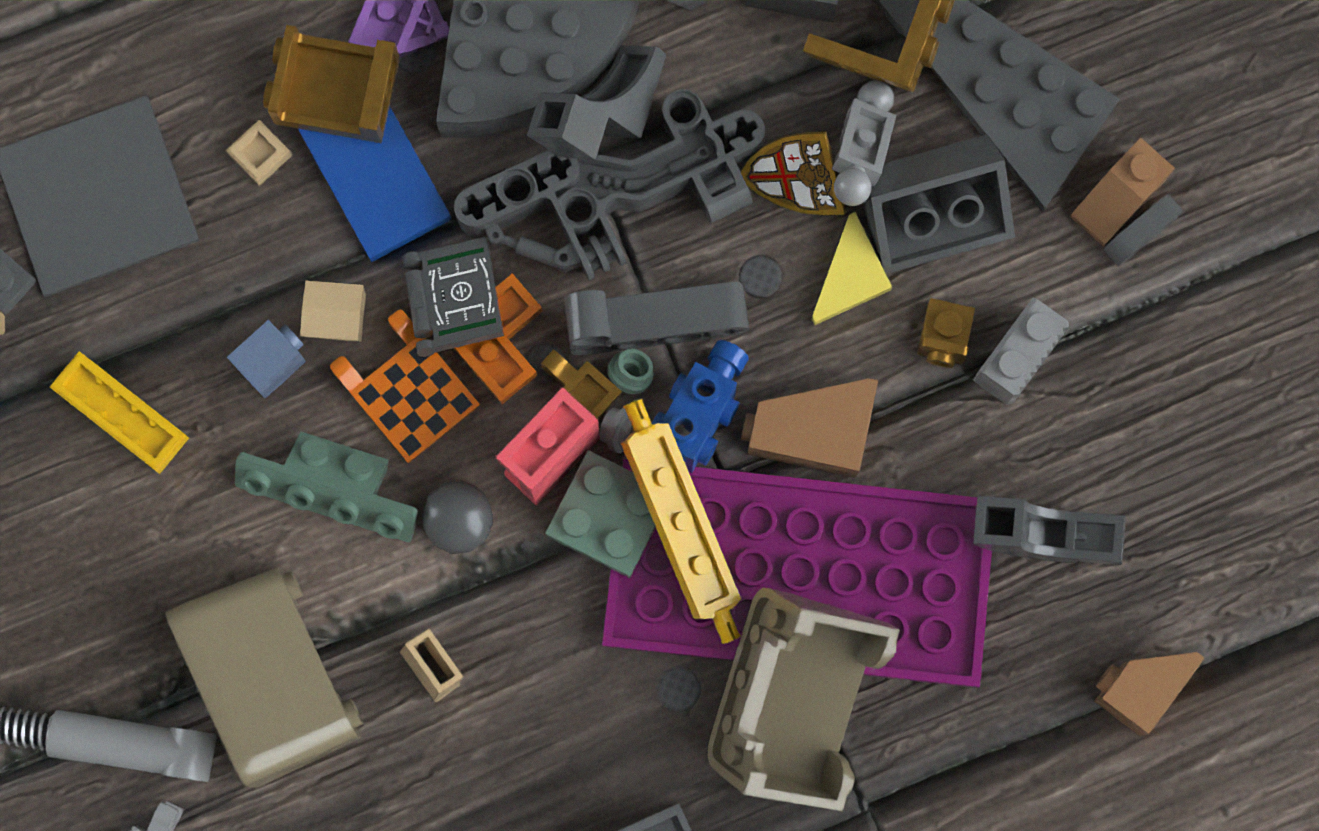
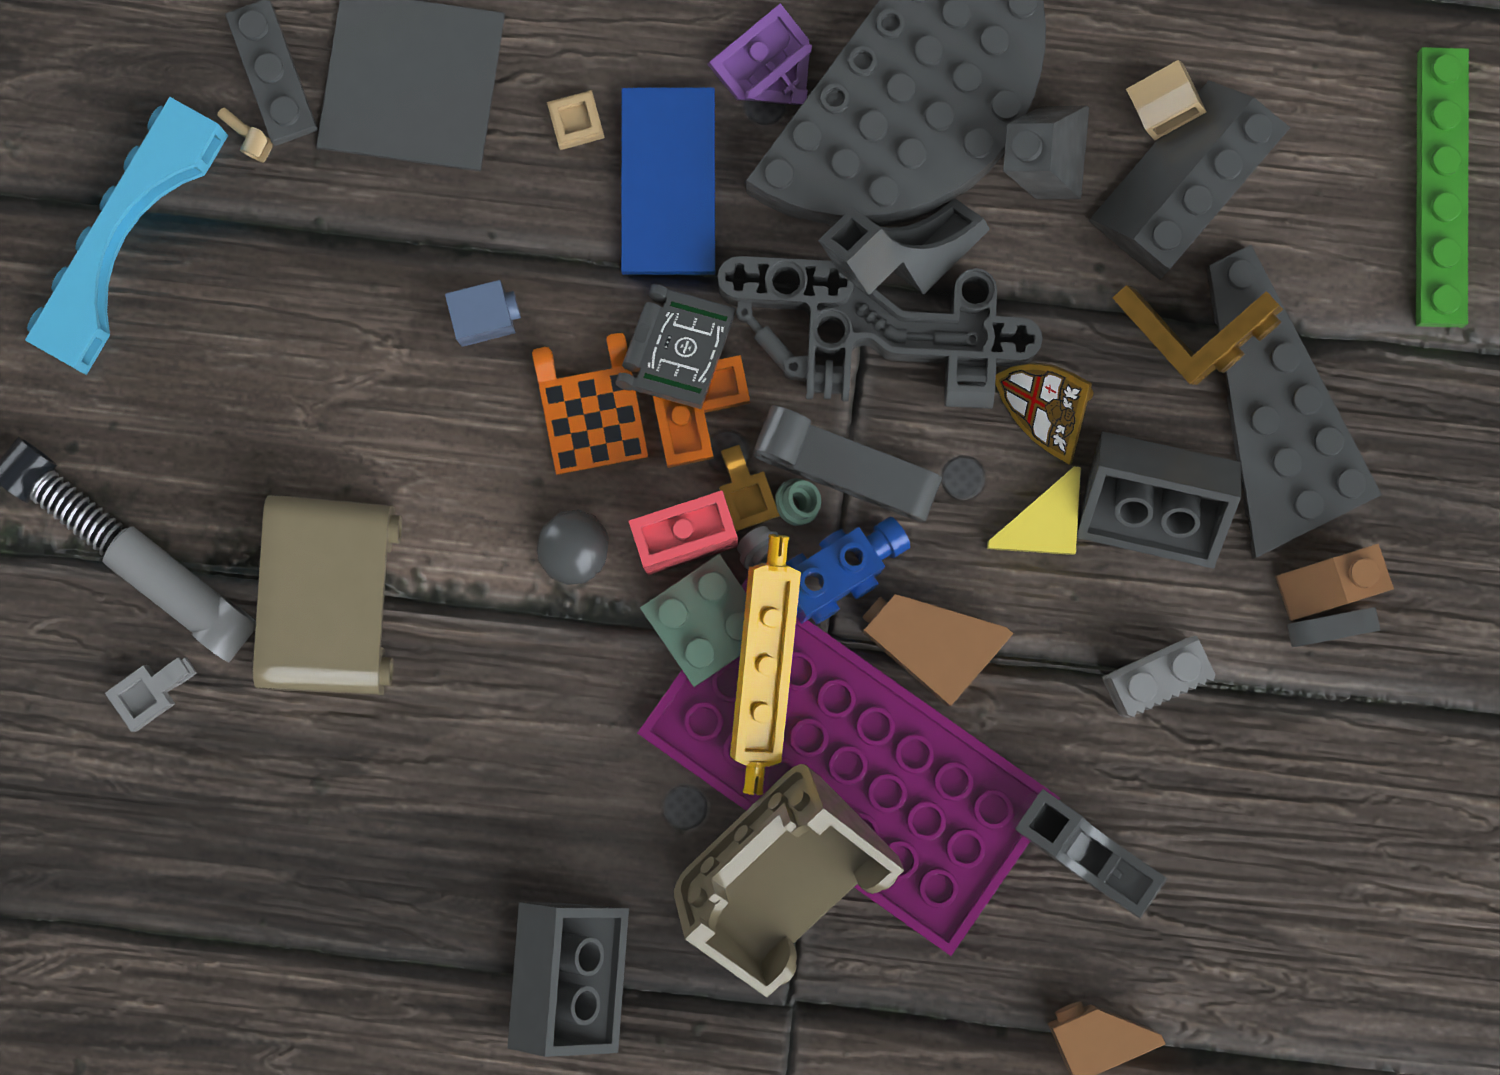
camera: 30 degrees right, 5 degrees up
(119, 412) = (326, 290): yellow plate -> none
(329, 482) = (478, 454): sand green bracket -> none
(331, 85) = (672, 95): pearl gold panel -> none
(333, 311) = (562, 302): tan piece -> none
(423, 672) = (465, 668): tan piece -> none
(864, 143) = (1122, 410): light grey plate -> none
(945, 333) = (1100, 622): pearl gold bracket -> none

